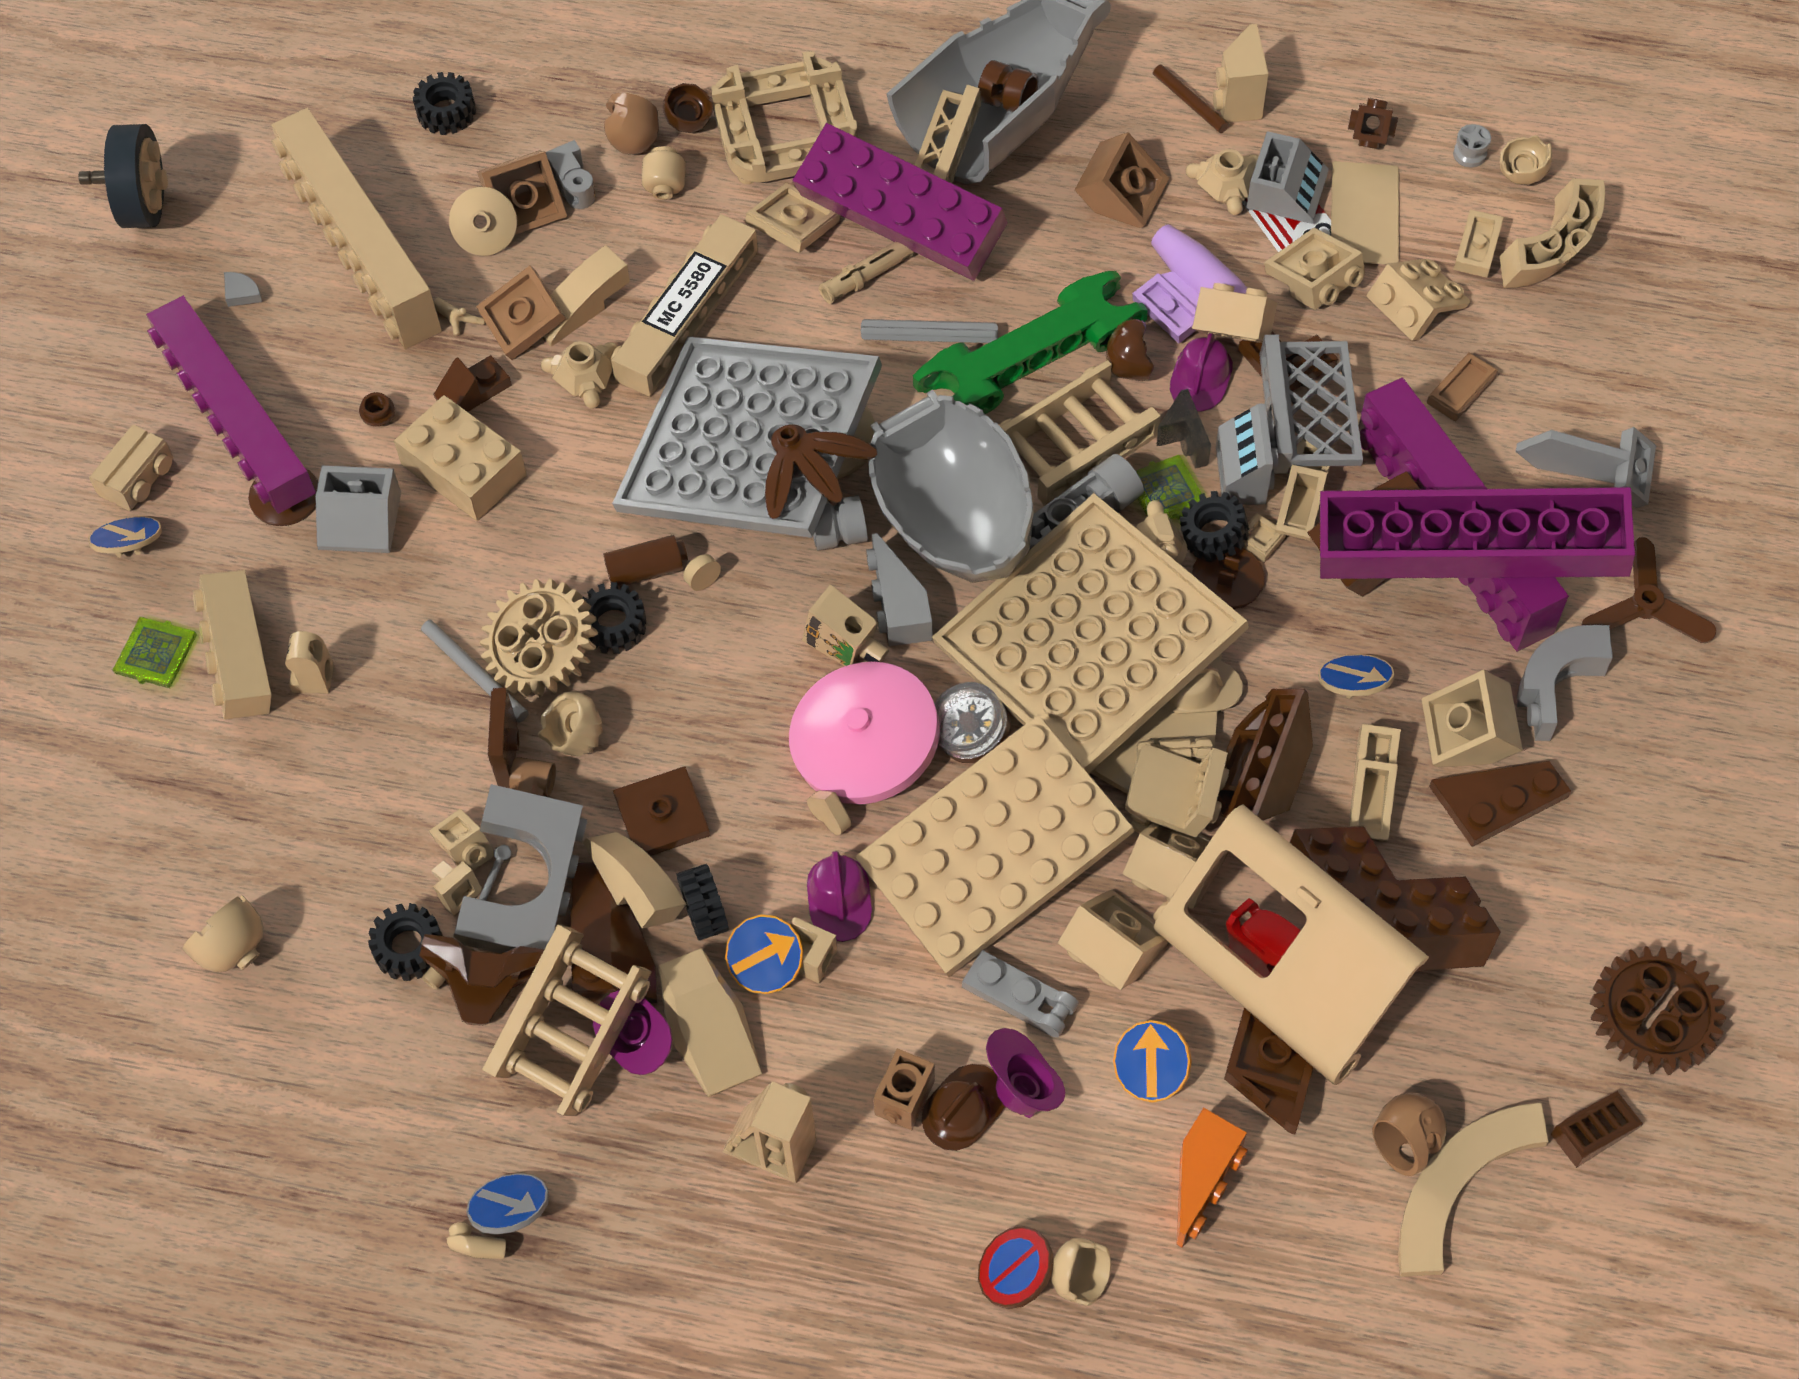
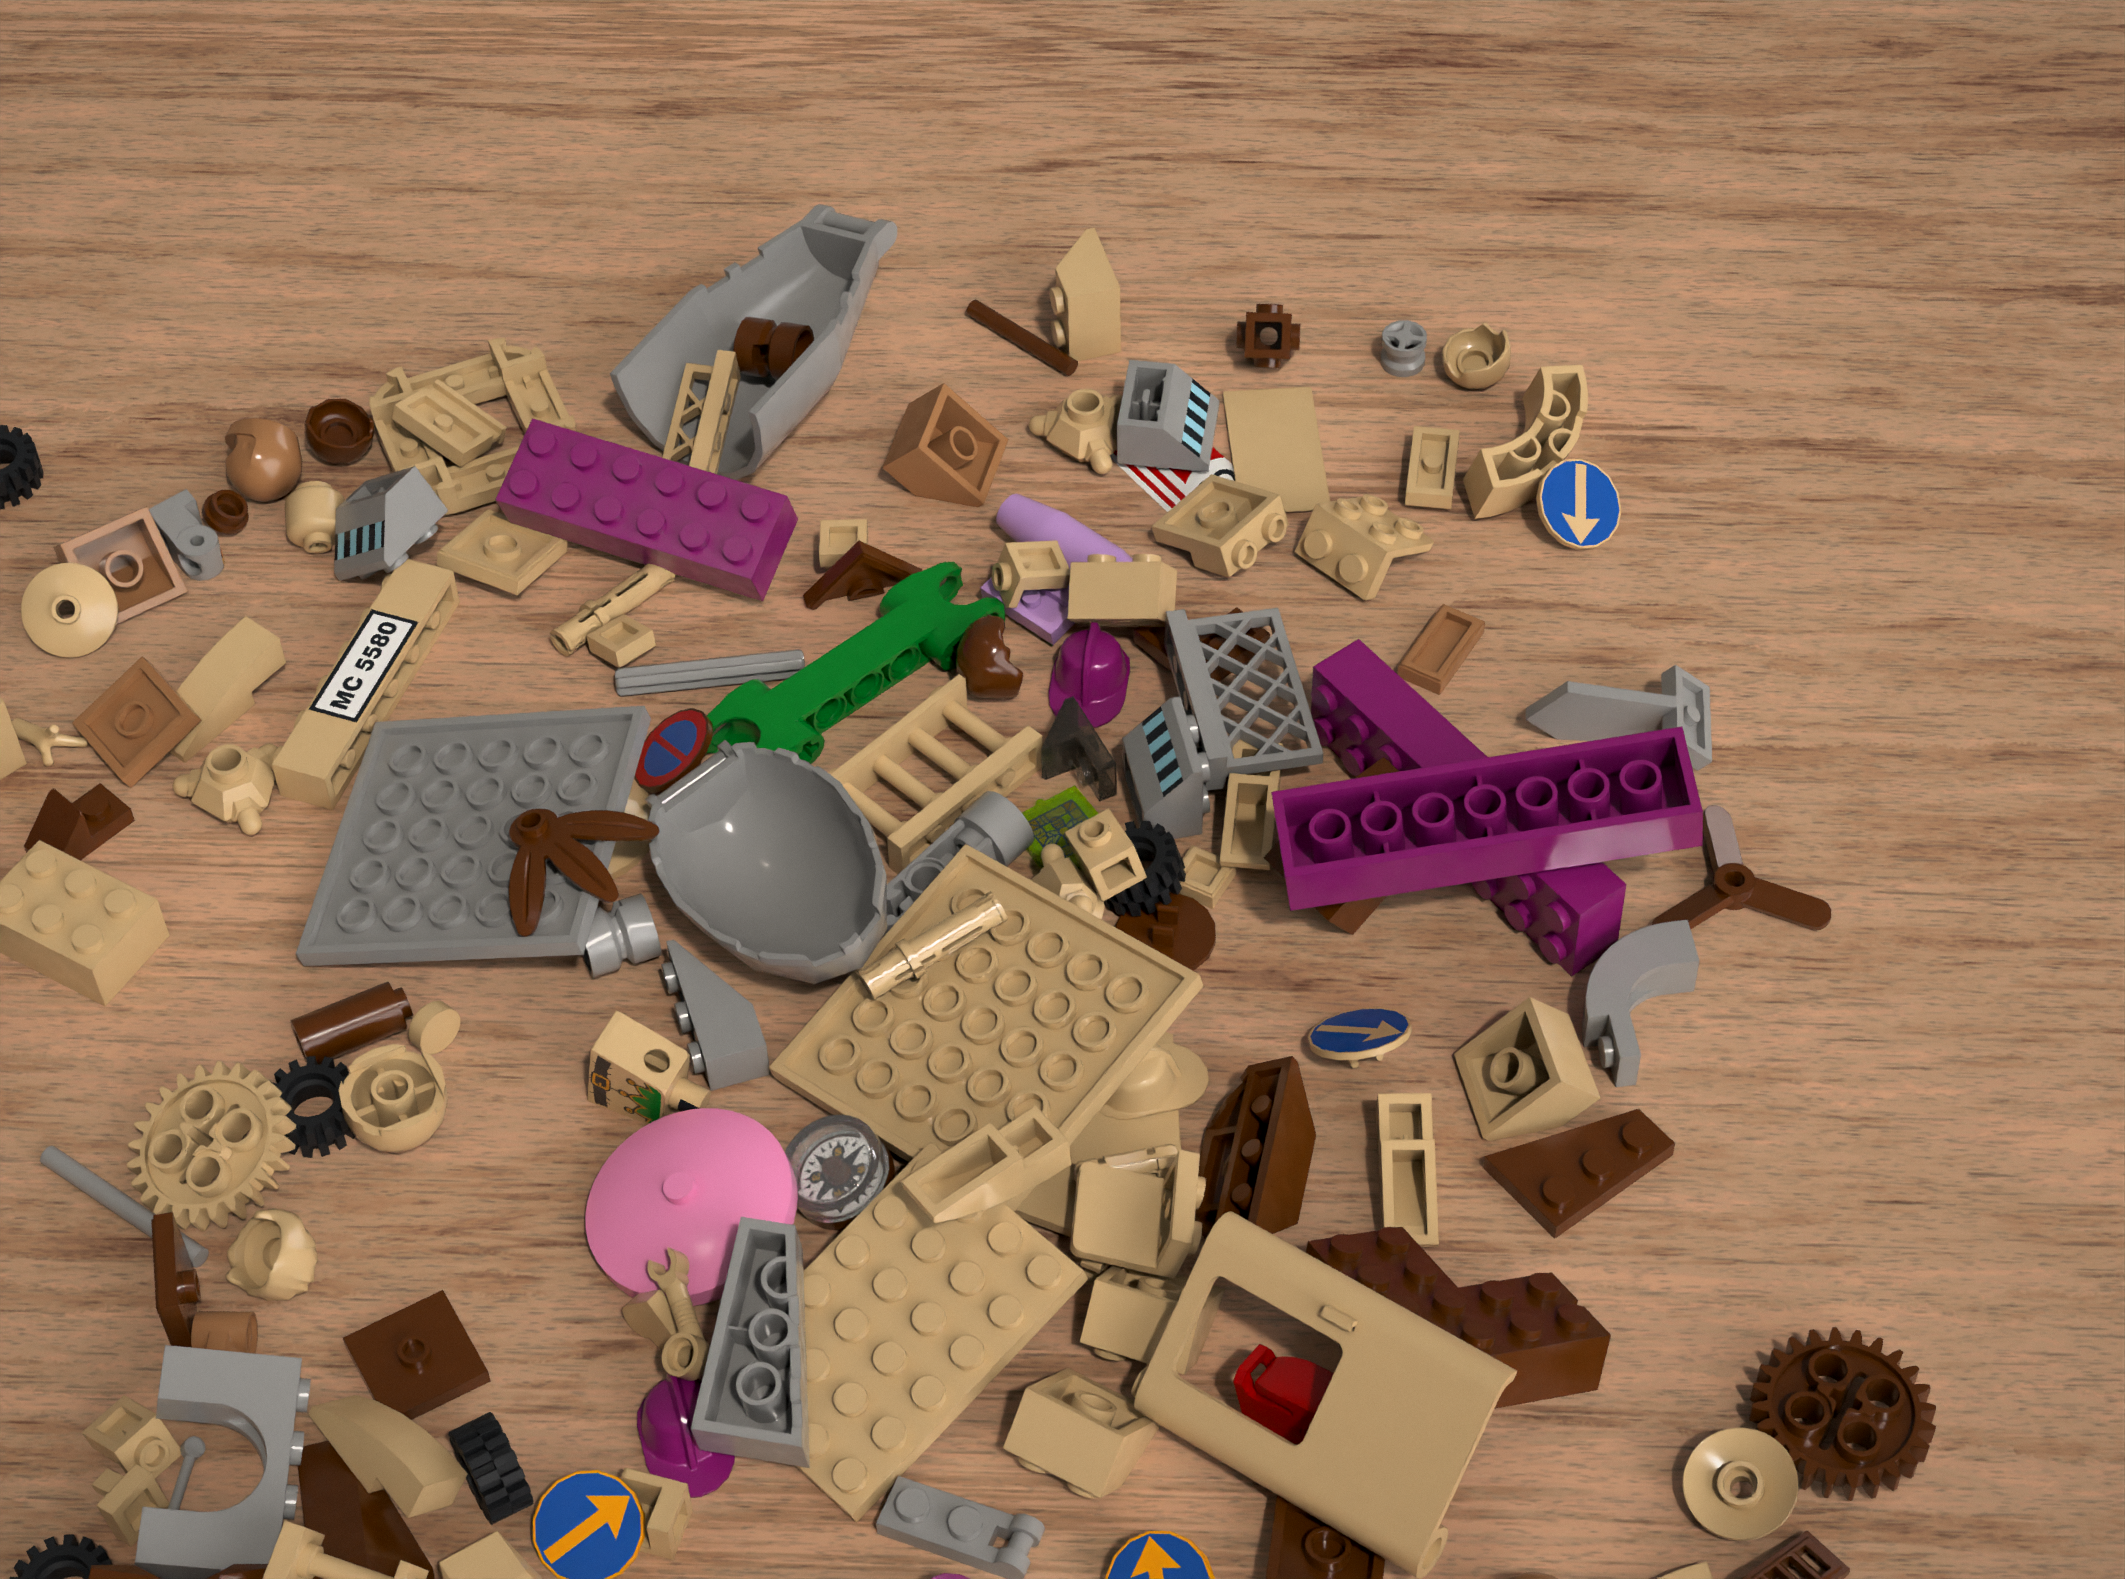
camera: 10 degrees left, 10 degrees down
(606, 157) = (225, 512): none -> reddish brown plate
(667, 622) = (394, 1098): none -> tan cylinder
(711, 185) = (383, 522): none -> light grey slope
(766, 113) = (448, 423): none -> tan plate
(847, 841) = (687, 1350): none -> tan brick
(869, 298) = (621, 640): none -> tan plate
(895, 856) = (756, 1363): none -> light grey wedge
(896, 388) = (673, 749): none -> piece
(1038, 245) = (838, 538): none -> tan tile
(1046, 271) = (858, 575): none -> reddish brown tile
(1057, 568) = (922, 951): none -> tan pin
(1076, 742) = (990, 1167): none -> tan slope
(1170, 284) = (1029, 567): none -> tan bracket
(1193, 515) = (1105, 854): none -> tan brick
(1575, 1030) = (1736, 1457): none -> tan dish
(1582, 288) = (1578, 504): none -> blue piece

